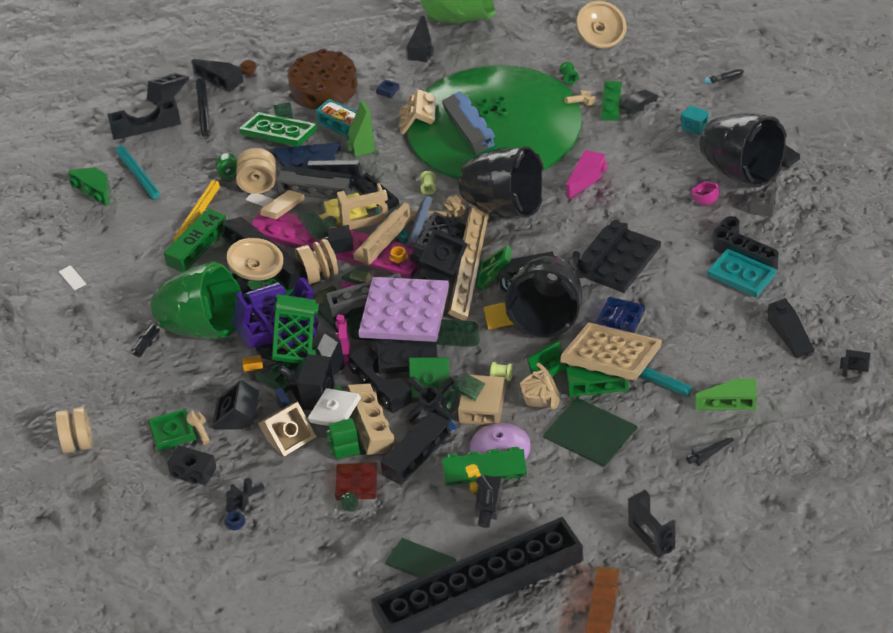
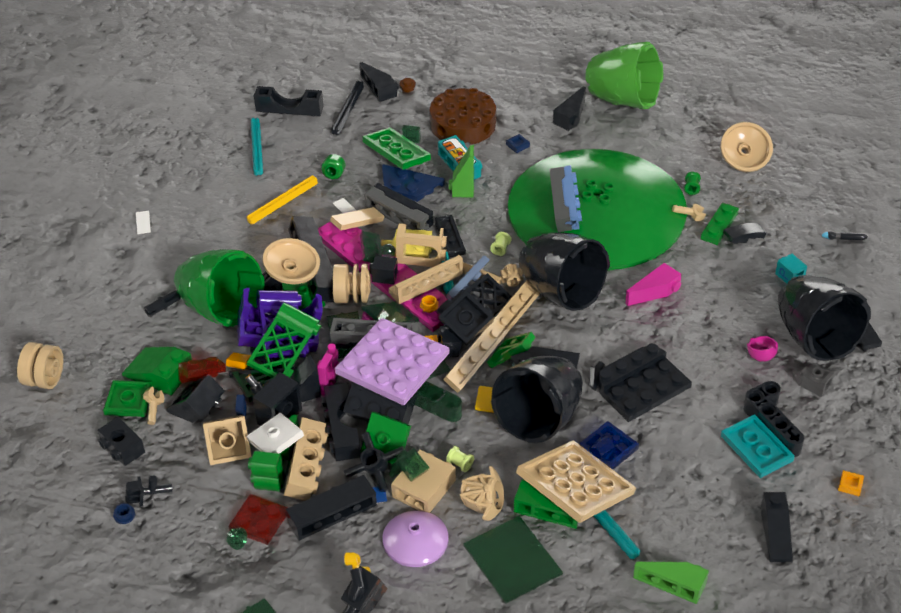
camera: 20 degrees right, 0 degrees up
(92, 183) = (211, 143): green slope -> none
(165, 87) = (325, 79): black slope -> none
(185, 390) = (158, 366): none -> green slope
(195, 240) = (261, 225): green brick -> none
(225, 380) = (196, 369): none -> clear red bracket
(256, 171) = (351, 179): tan wheel -> none
(346, 166) = (435, 204): black plate -> none
(419, 106) = (531, 171): tan bracket -> none
(502, 464) = (384, 556): green brick -> none
(548, 357) = (507, 464): green bracket -> none
(830, 275) = (851, 483): none -> light orange tile
(855, 360) = (829, 591): black bracket -> none

